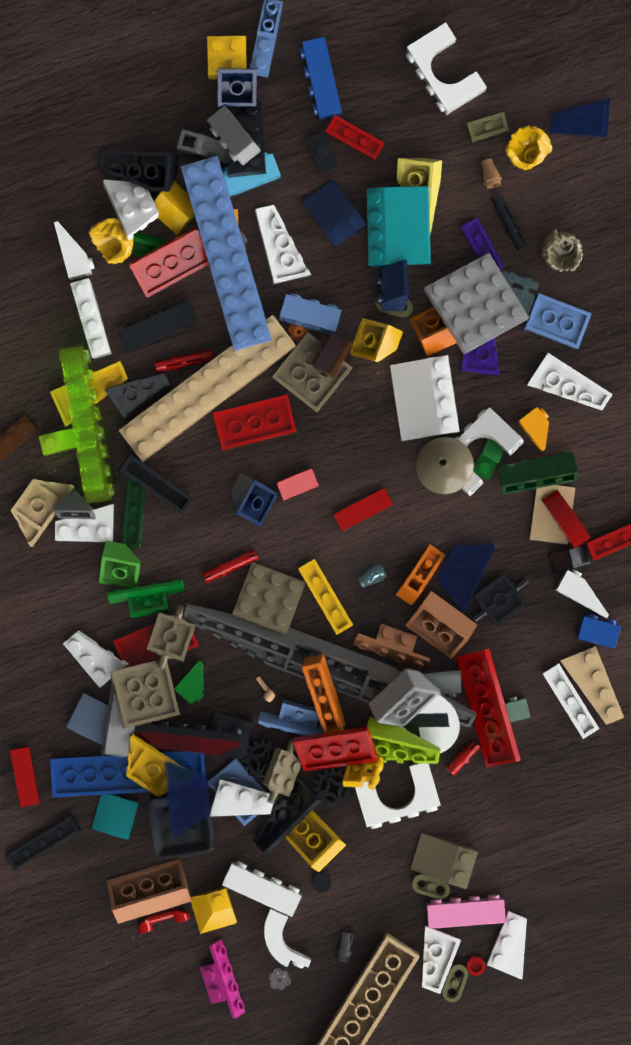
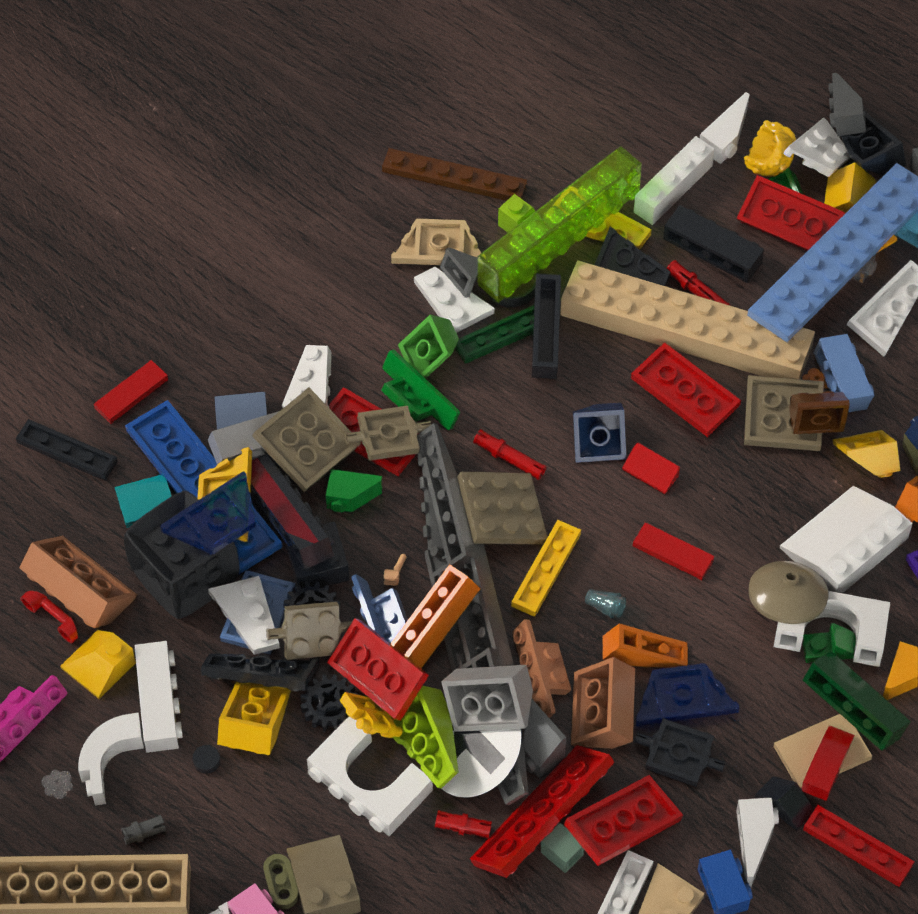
camera: 60 degrees right, 30 degrees down
(117, 166) = (847, 108): none -> dark grey slope
(525, 665) = (623, 820): none -> red plate

